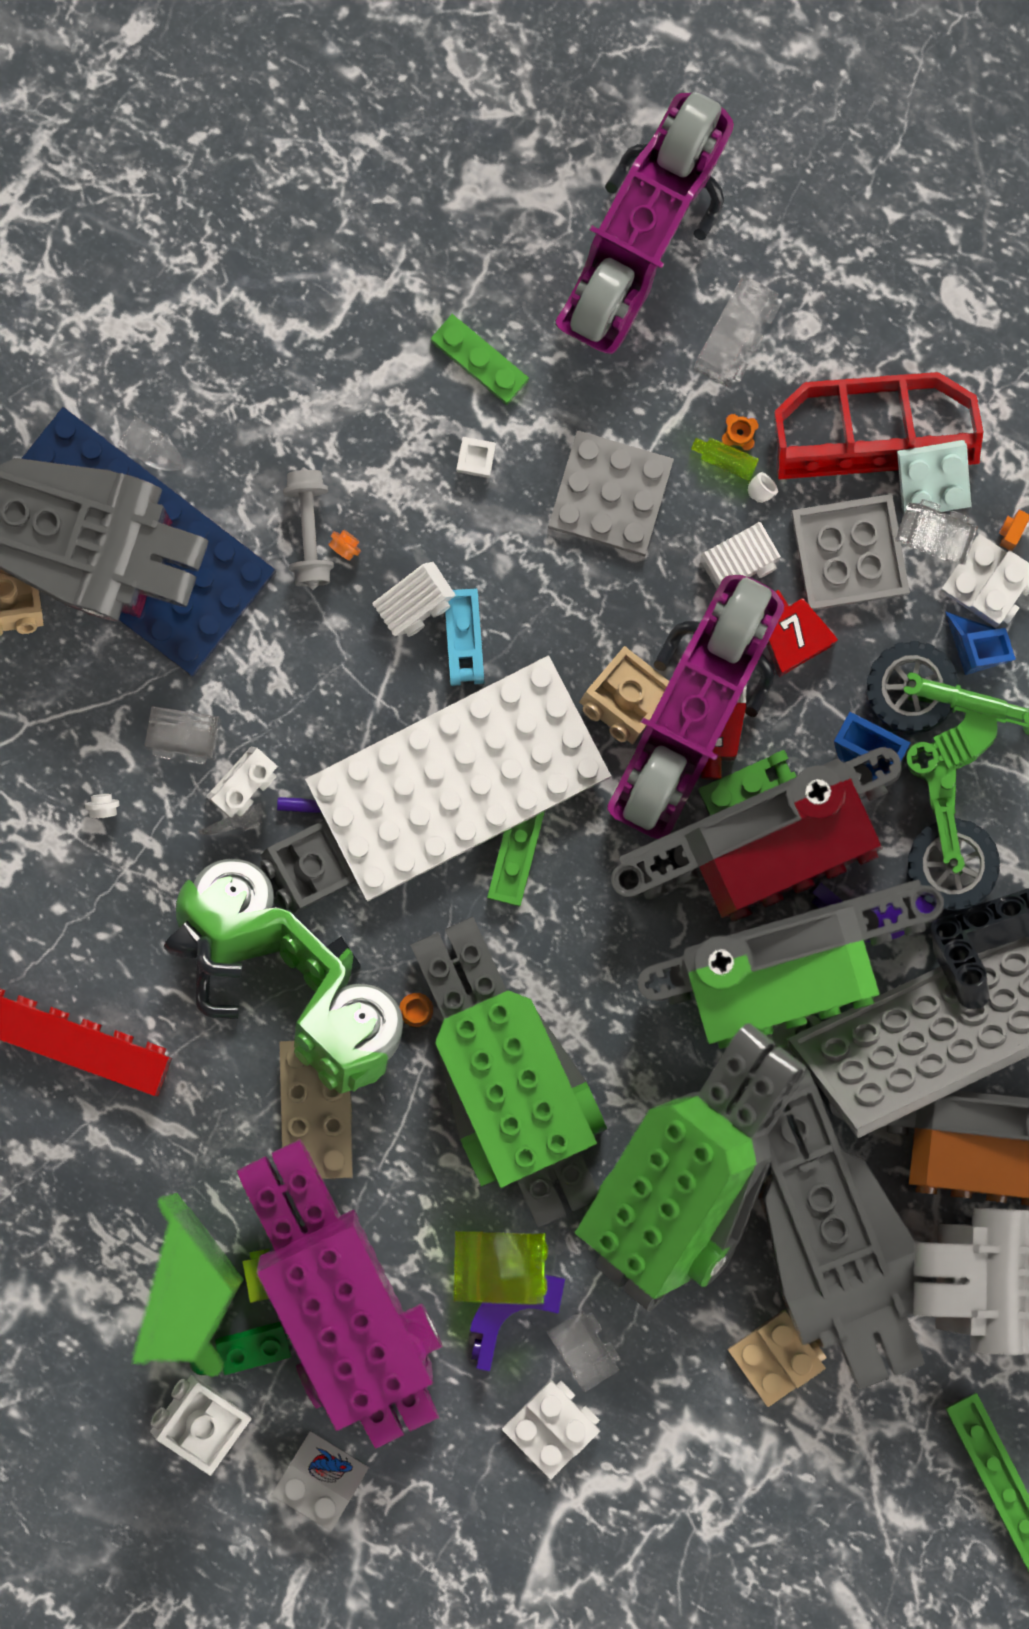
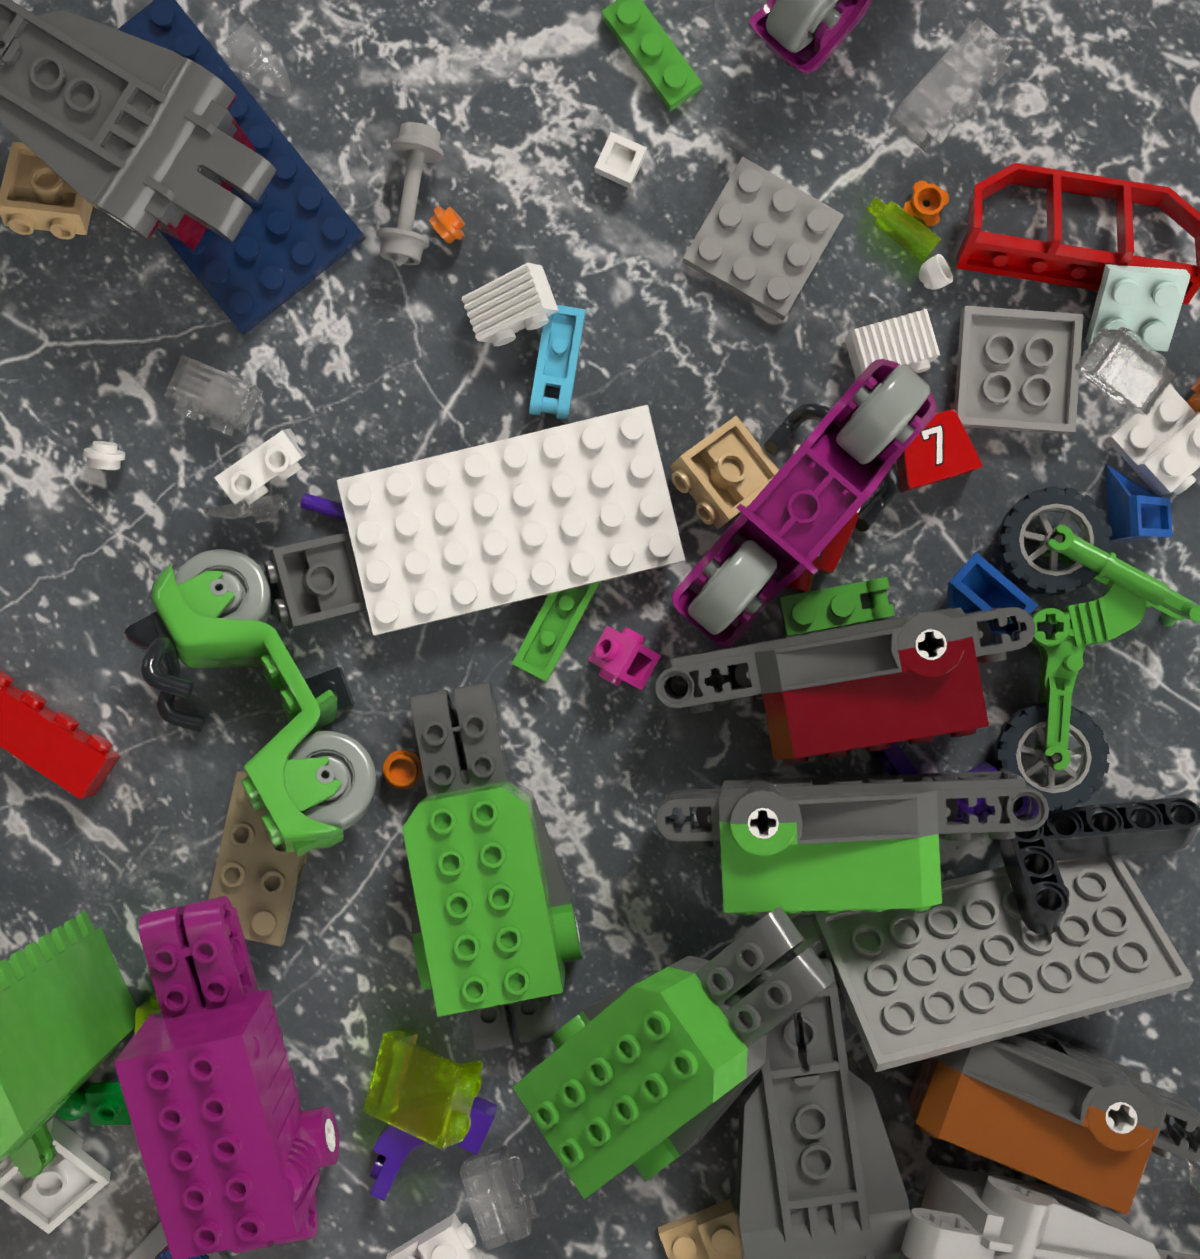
camera: 15 degrees right, 5 degrees up
(580, 869) = (617, 653): none -> dark pink brick

